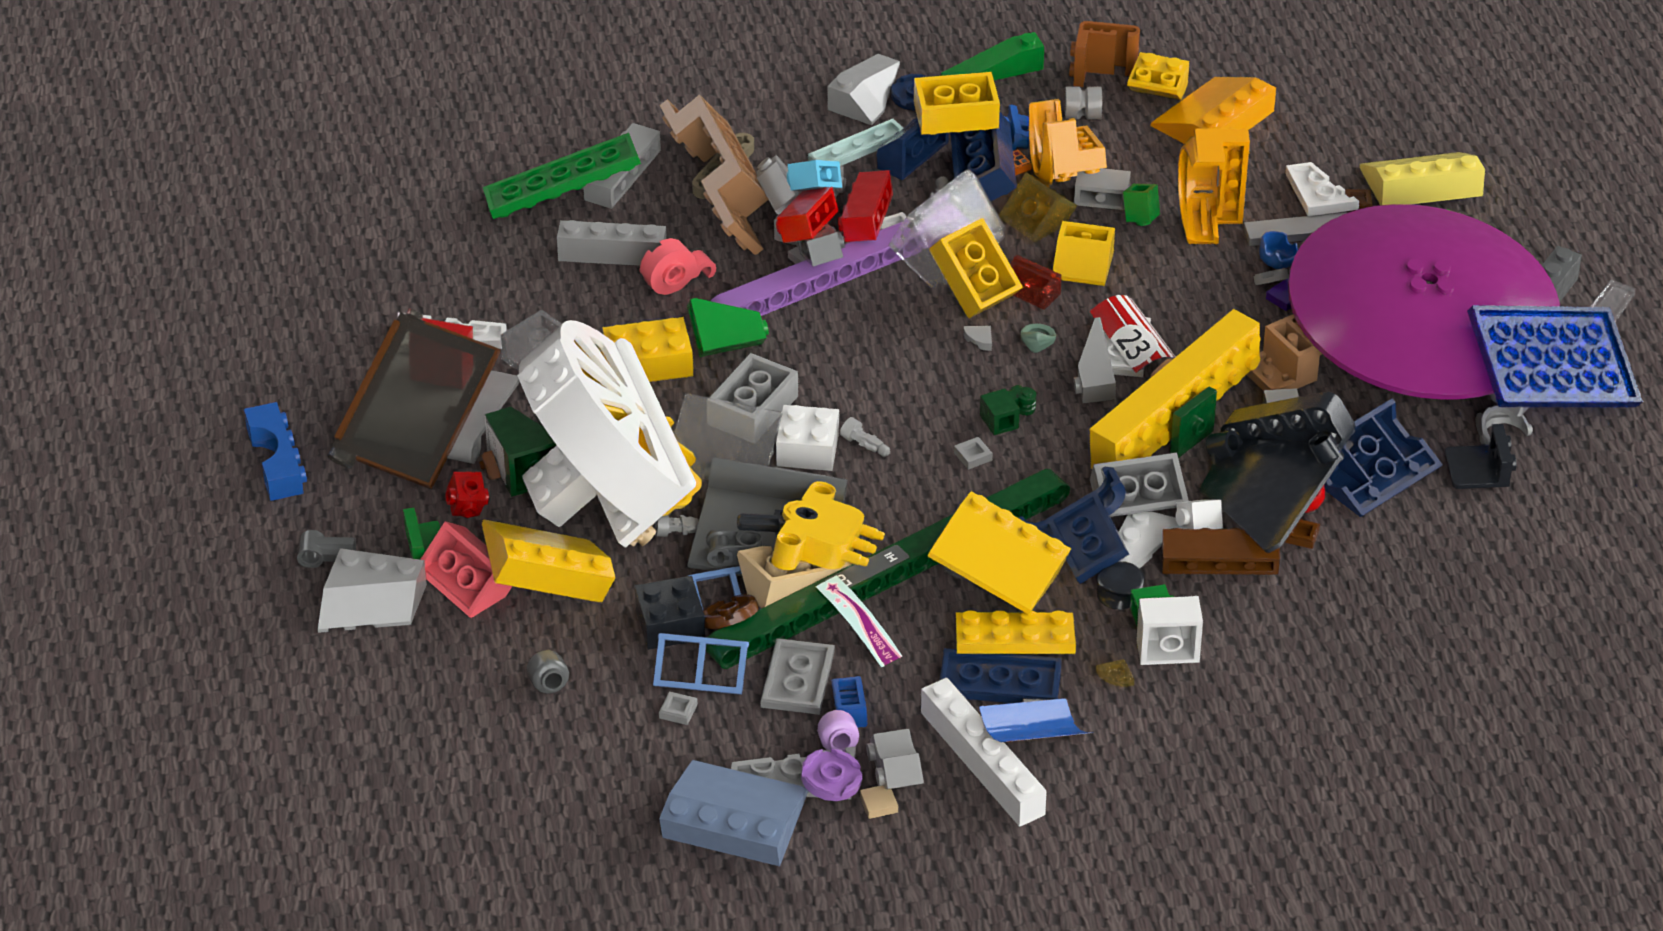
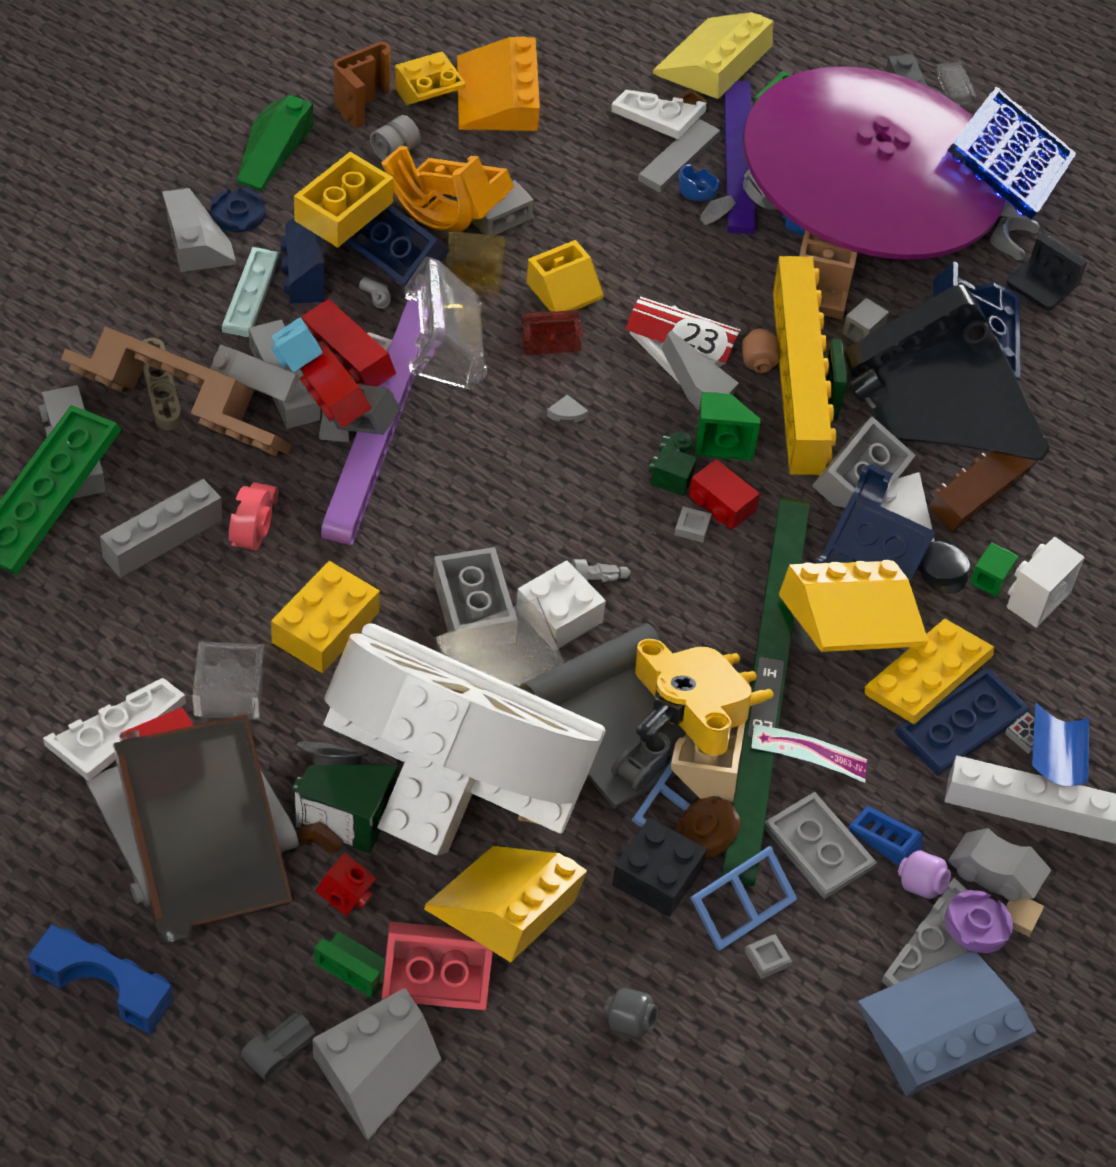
camera: 50 degrees left, 10 degrees up
(724, 327) = (369, 547): green slope -> none
(975, 268) = (515, 348): yellow brick -> none
(1015, 447) = (723, 494): none -> red brick
(1036, 340) = (614, 387): sand green piece -> none
(1061, 401) = (725, 428): none -> green slope
(1116, 672) = (1035, 648): clear yellow tile -> none
(1141, 203) = (554, 204): green brick -> none
(1198, 171) = (617, 121): light orange piece -> none
(1199, 514) = (934, 460): white brick -> none

